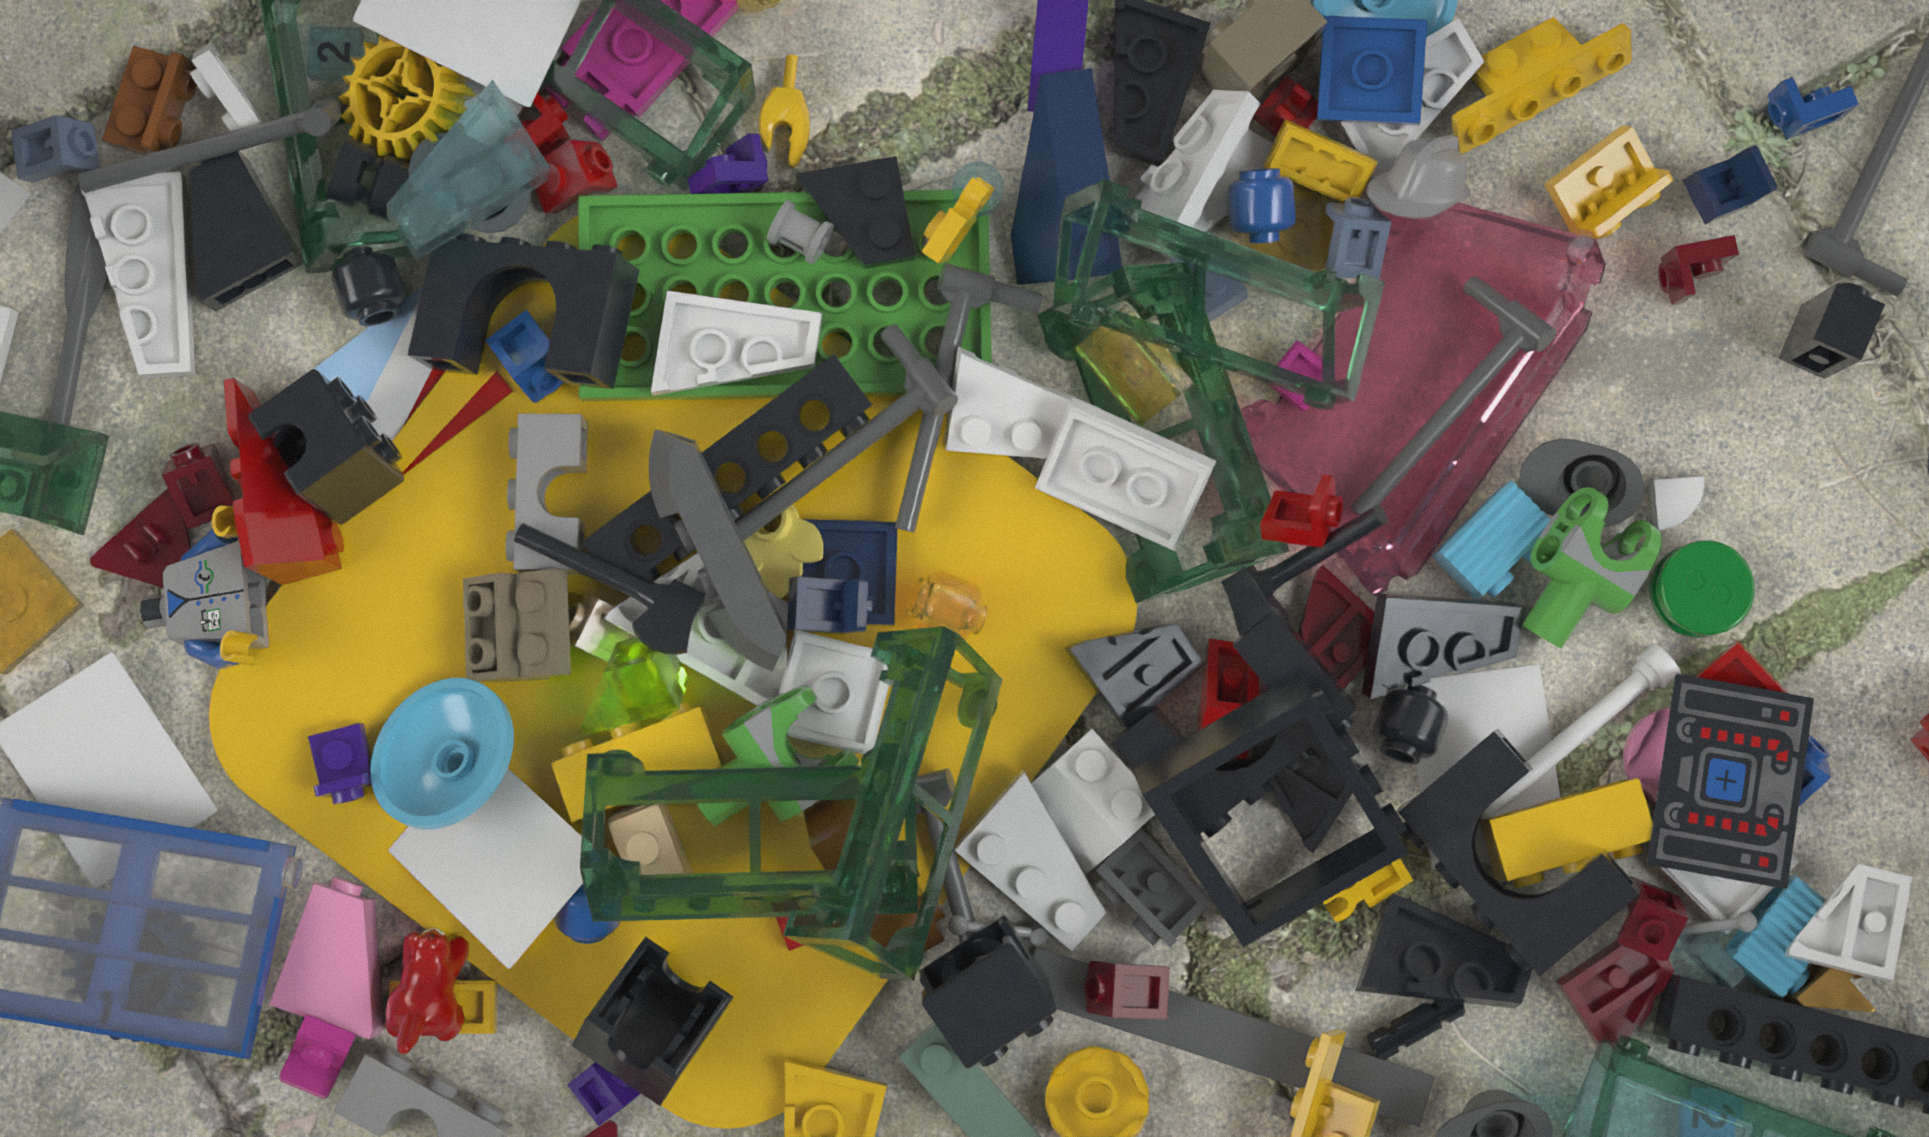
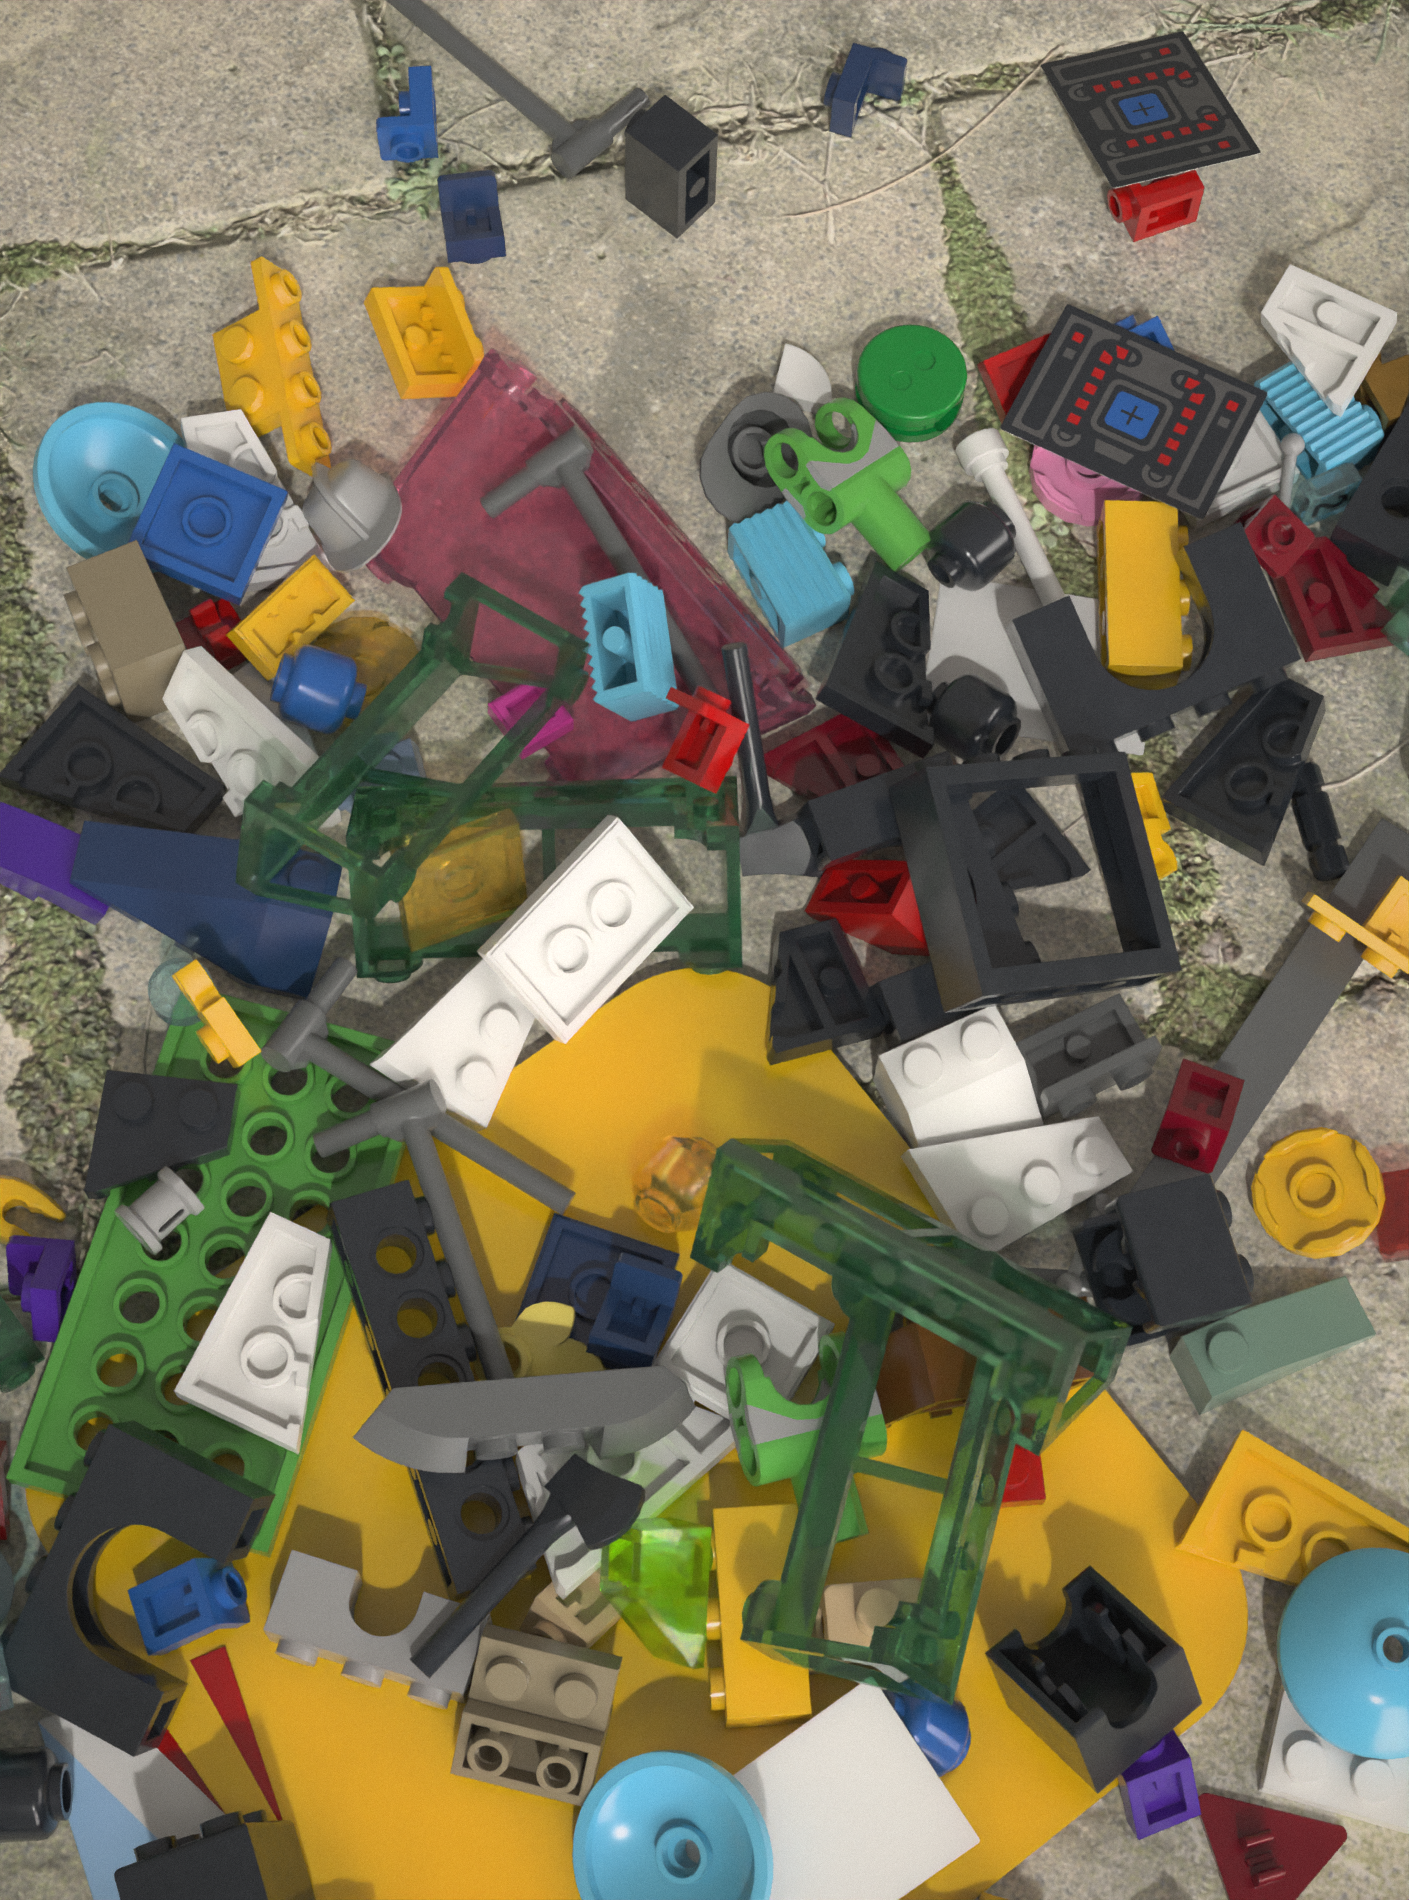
camera: 70 degrees left, 15 degrees down
(1357, 238) = (394, 601): sand blue bracket -> none
(1371, 433) = (629, 646): none -> medium azure brick
(1565, 680) = (971, 545): none -> black head
(1697, 259) = (544, 289): dark red bracket -> none

